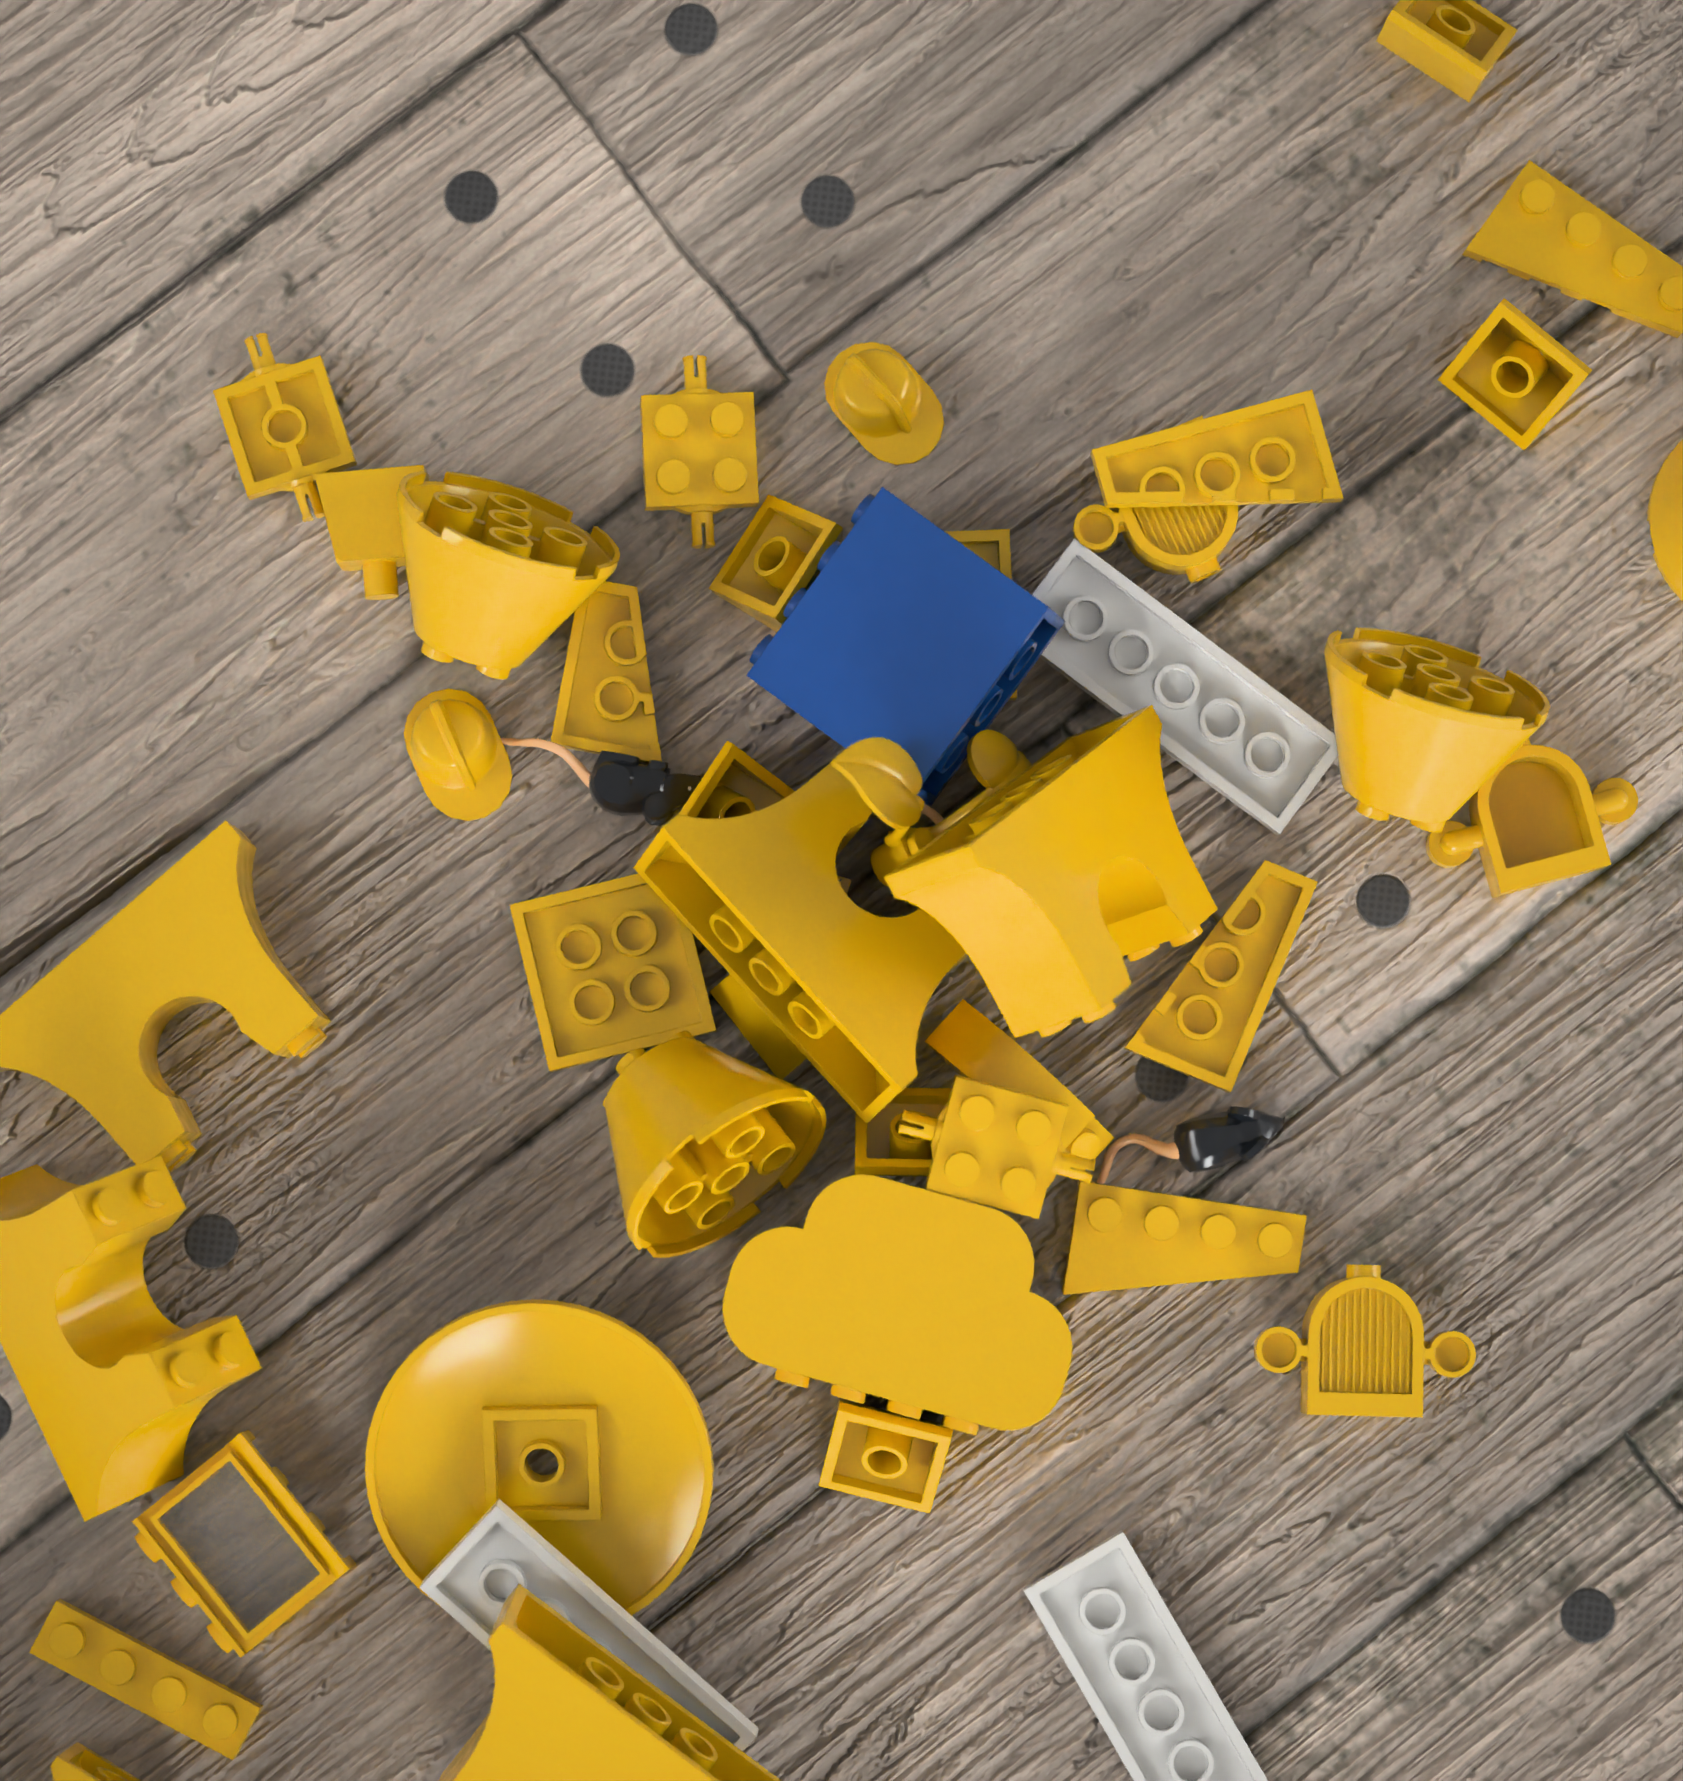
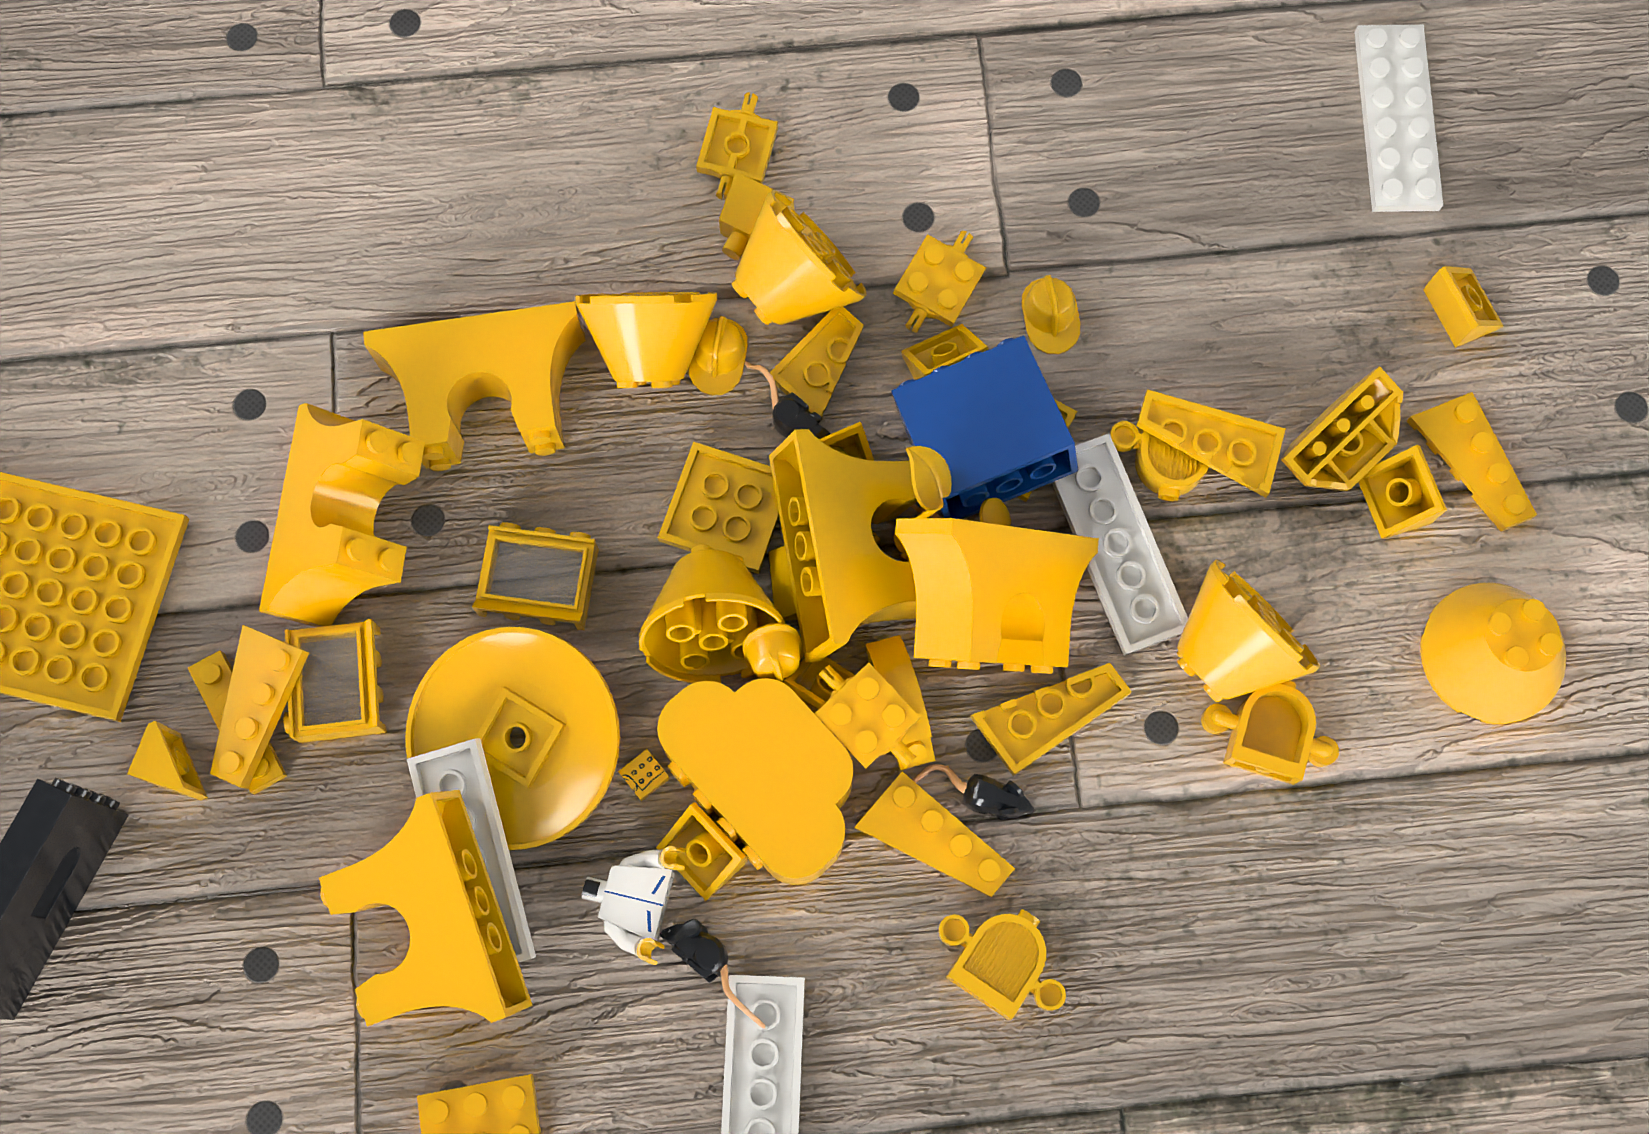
camera: 35 degrees right, 10 degrees down
(159, 1632) = (256, 697): none -> yellow wing
(346, 790) = (647, 333): none -> yellow cone
(418, 1226) = (537, 574): none -> window
(740, 1401) = (644, 775): none -> yellow tile
(819, 1140) = (773, 651): none -> yellow piece
(840, 1573) = (636, 899): none -> white torso
(977, 1586) = (705, 955): none -> black animal
(1397, 339) = (1348, 435): none -> yellow wedge

